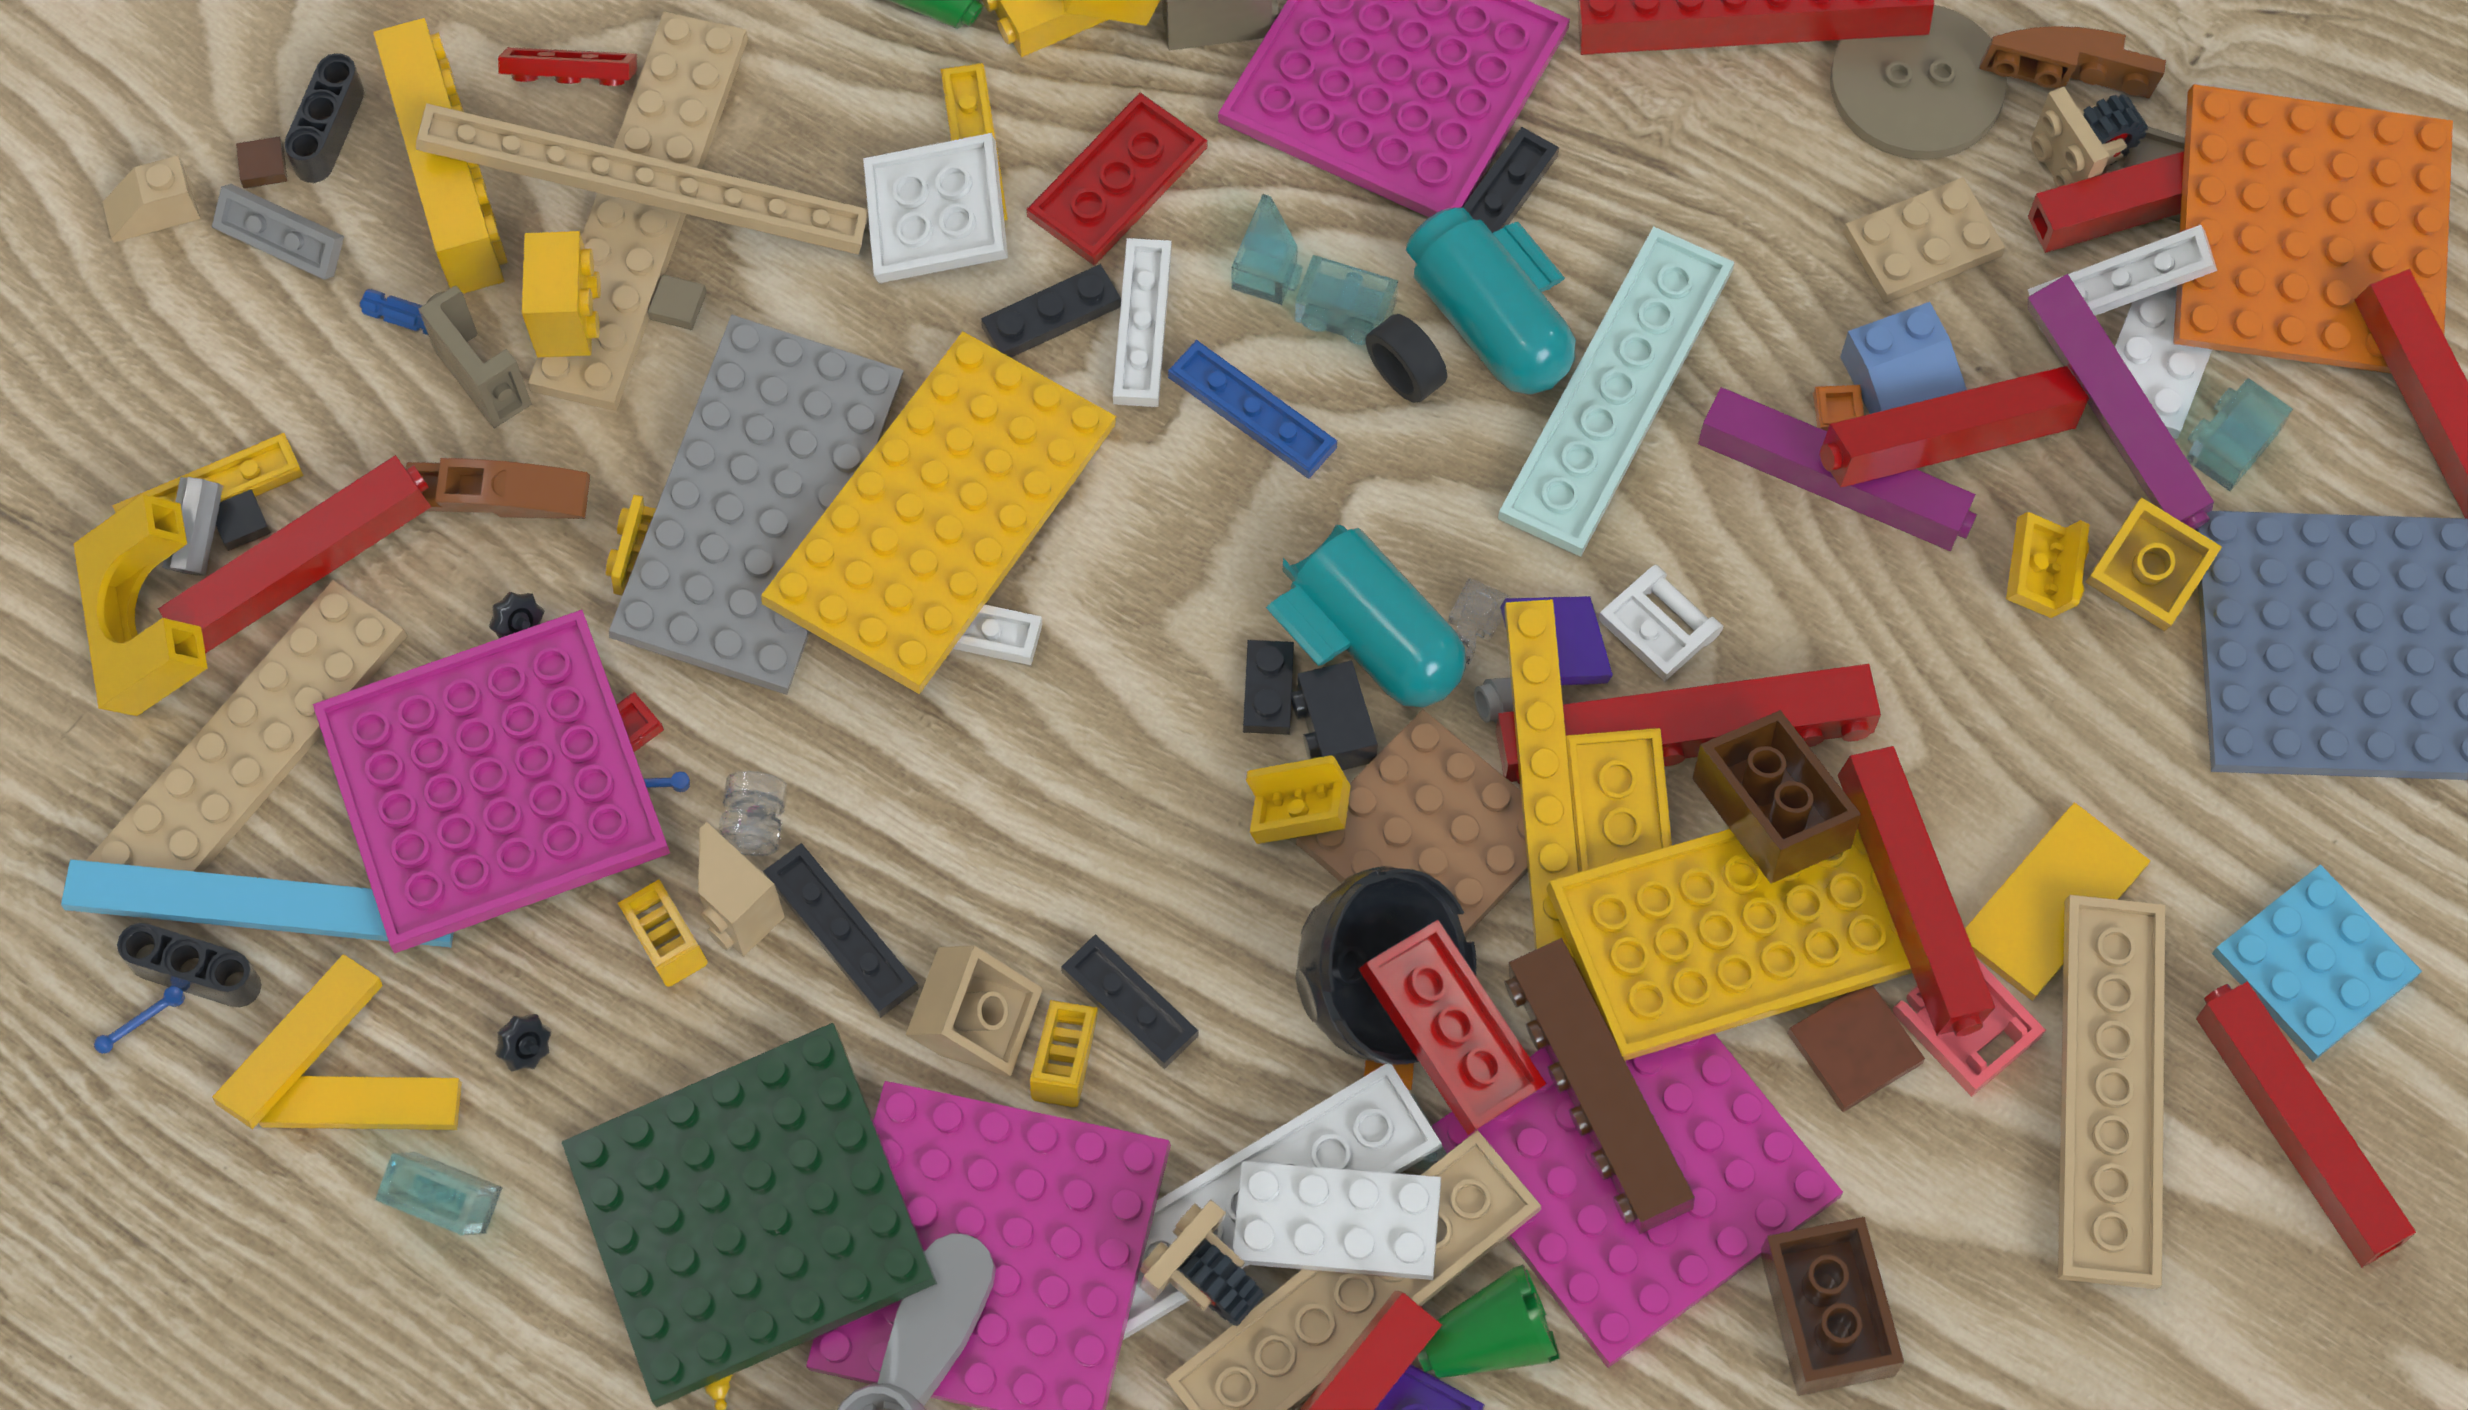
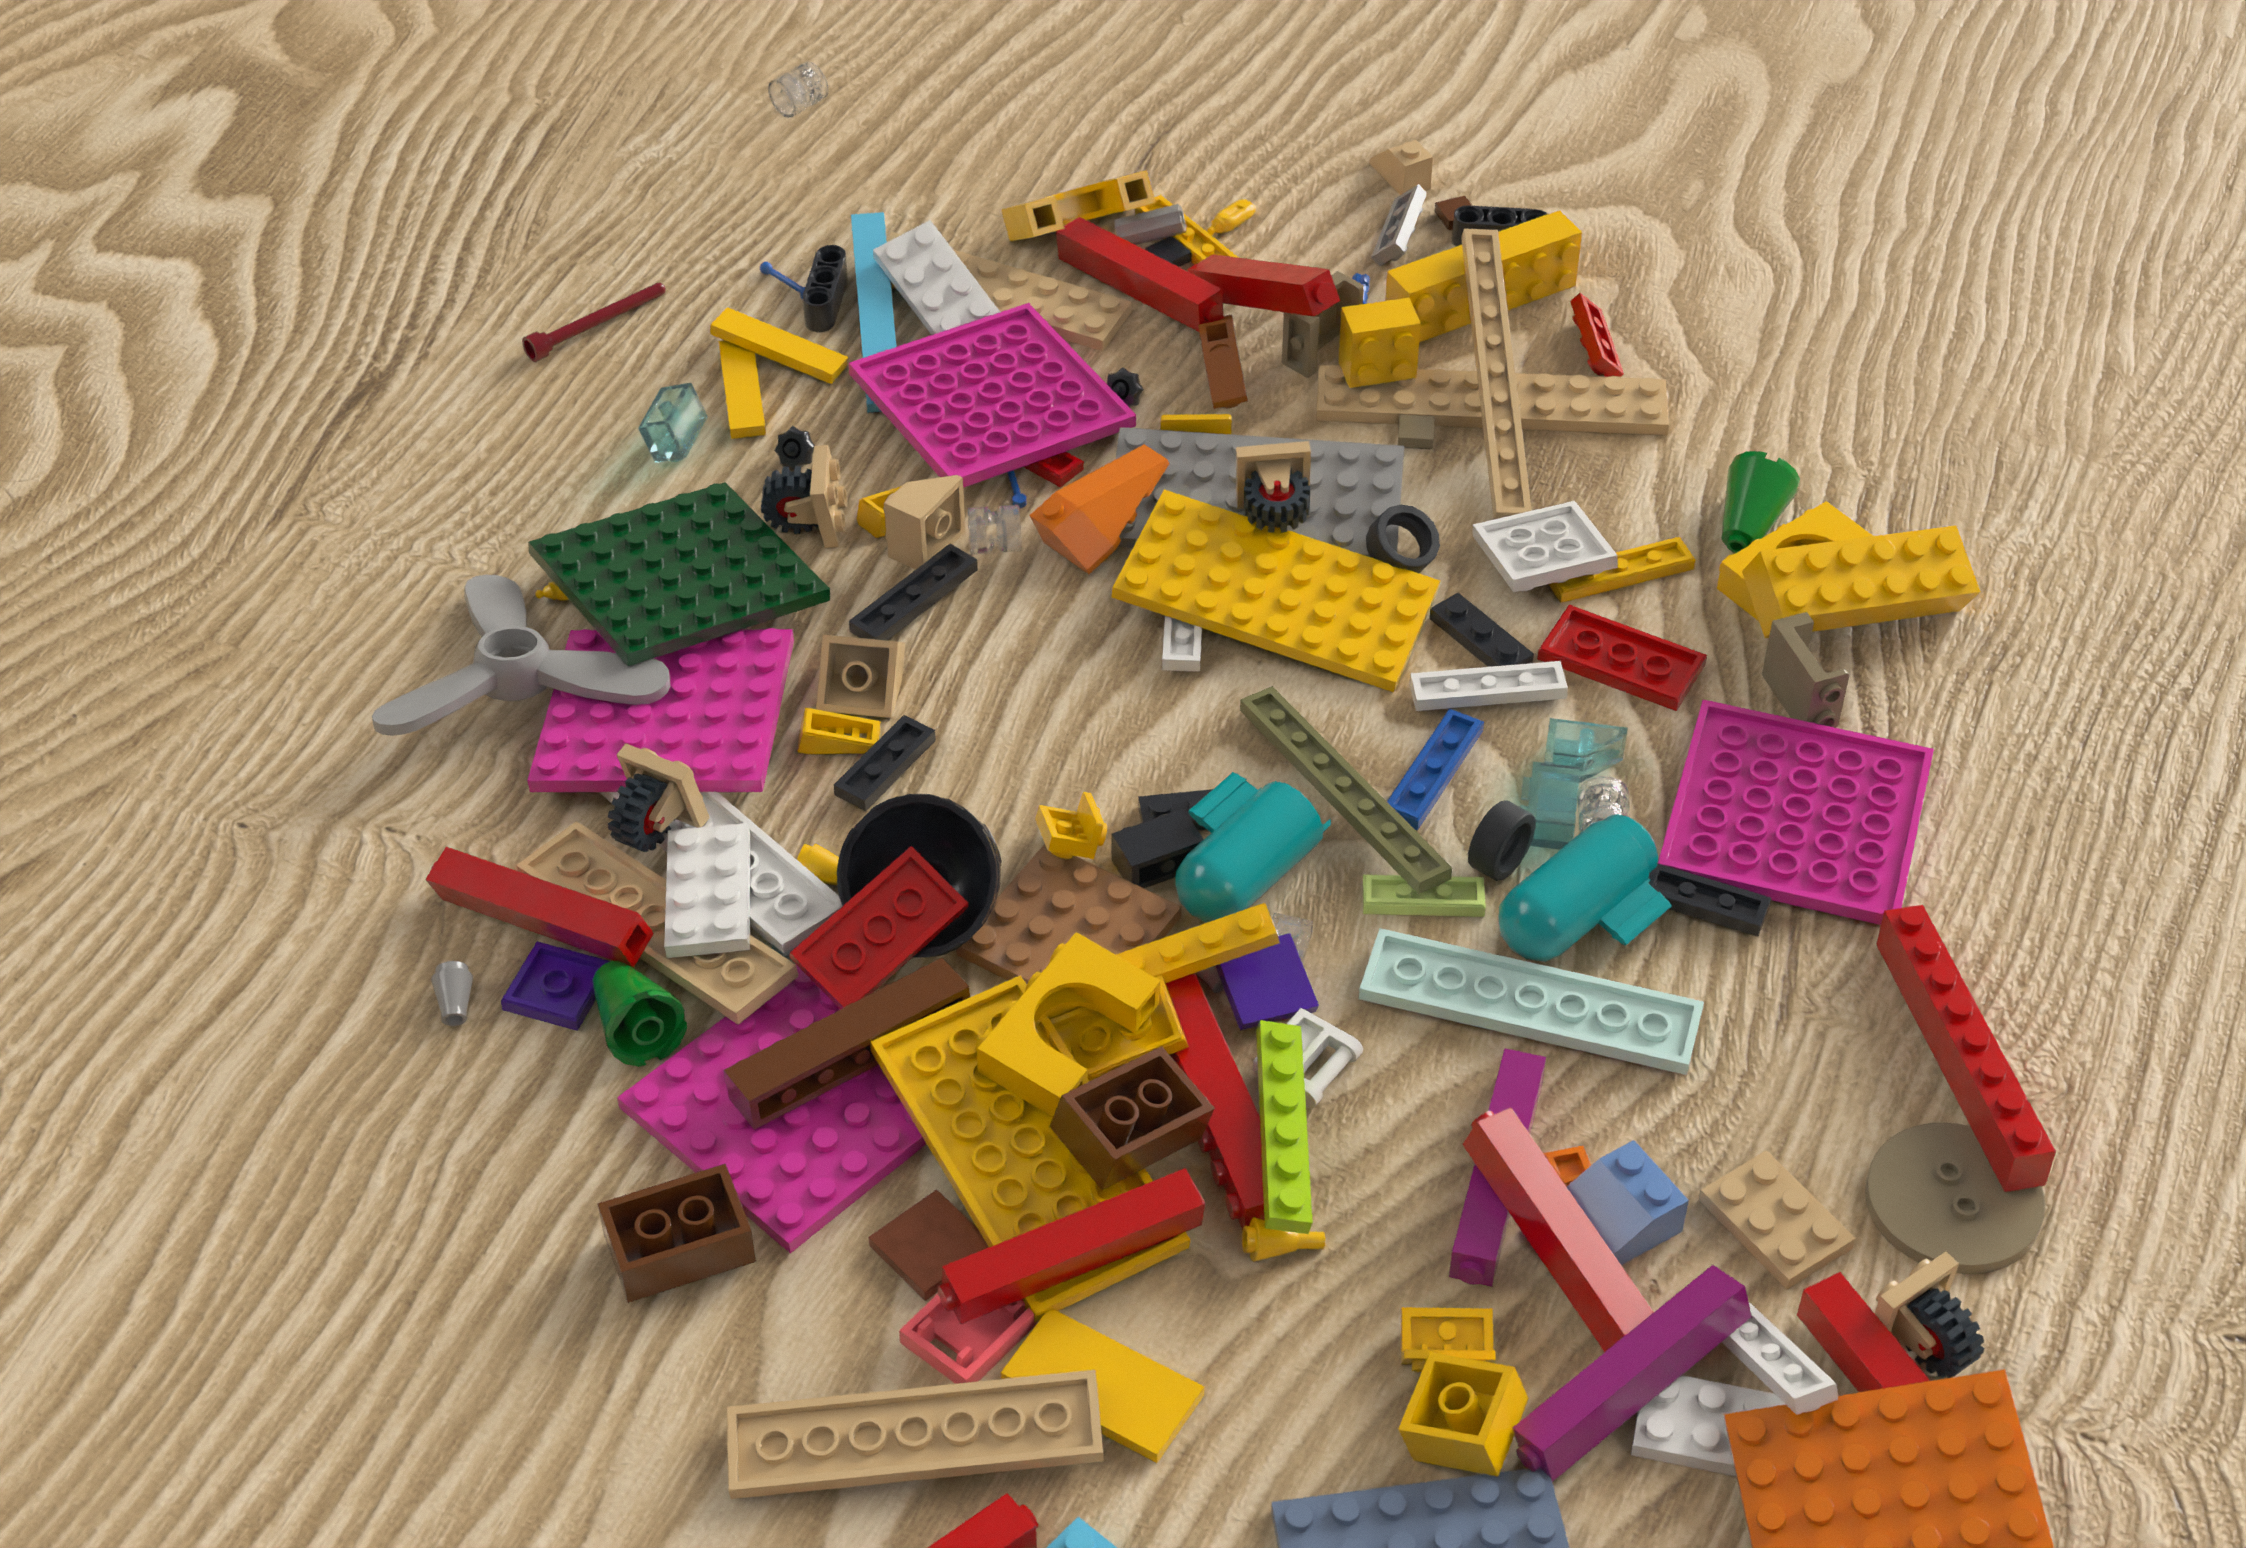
camera: 80 degrees right, 20 degrees down
(183, 427) = (1232, 216): none -> yellow piece
(192, 1372) = (539, 345): none -> dark red piece
(245, 813) = (933, 279): none -> white plate
(417, 399) = (1269, 284): none -> red brick
(648, 1029) = (807, 498): none -> plate
(760, 680) = (1091, 512): none -> orange wedge
(811, 465) = (1274, 484): none -> plate
(901, 332) = (1417, 524): none -> black tyre
(1280, 503) = (1346, 790): none -> olive plate
(1290, 1091) = (820, 863): none -> yellow cone
(1374, 250) = (1600, 799): none -> clear wheel
(1442, 461) = (1396, 897): none -> yellowish green tile
(1664, 899) = (1076, 976): none -> yellow arch
(1780, 655) = (1283, 1128): none -> lime plate
(1899, 703) = (1269, 1243): none -> yellow cone
(2085, 54) = (2025, 1298): dark orange slope -> none
(2238, 433) = (1644, 1493): clear light blue brick -> none

